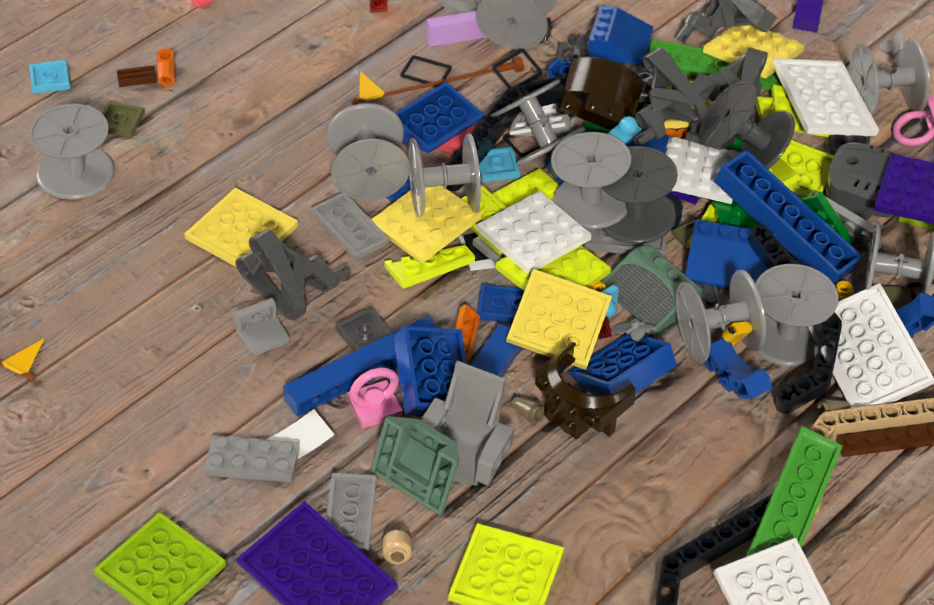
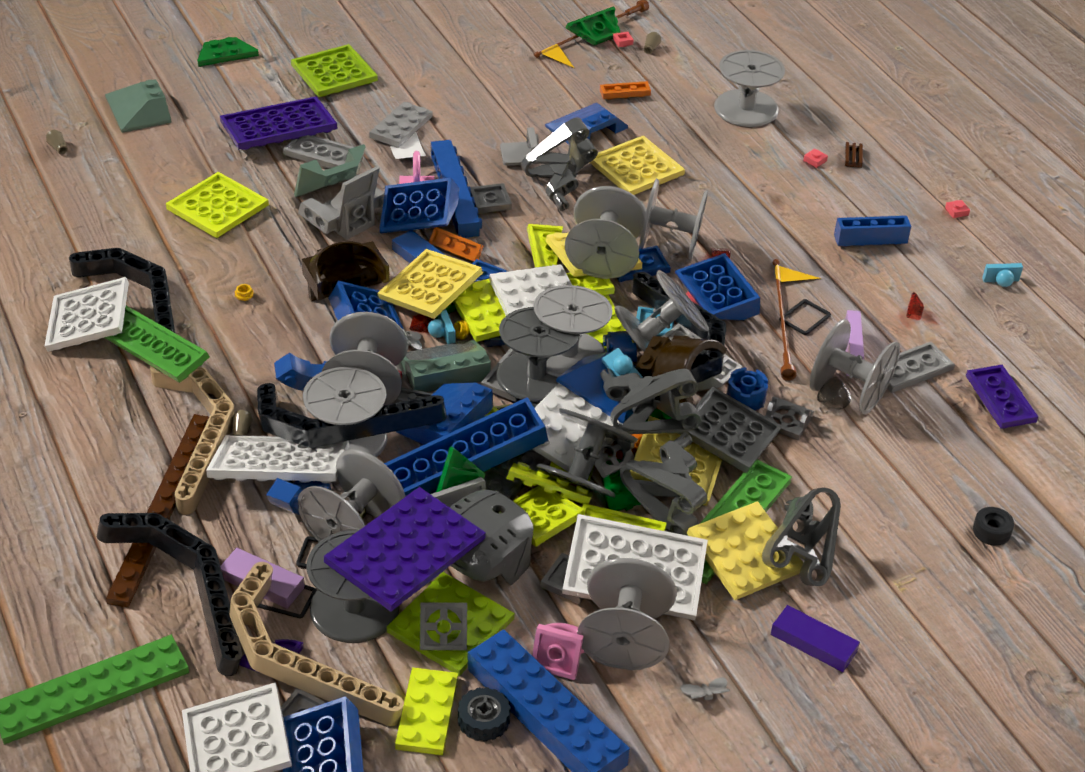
camera: 110 degrees right, 5 degrees down
(49, 76) = (869, 114): medium azure tile -> none
(88, 273) = (625, 90): none -> orange plate
(122, 118) = (800, 137): olive tile -> none
(155, 102) = (815, 158): none -> coral plate
(166, 67) = (860, 167): orange piece -> none
(175, 290) = (594, 117): none -> blue slope
(281, 37) = (872, 230): none -> blue brick
(397, 547) = (275, 161): tan head -> none
(512, 56) = (794, 362): black piece -> none
(619, 36) = (797, 443): blue slope -> none
(646, 483) = (244, 292): none -> yellow plate

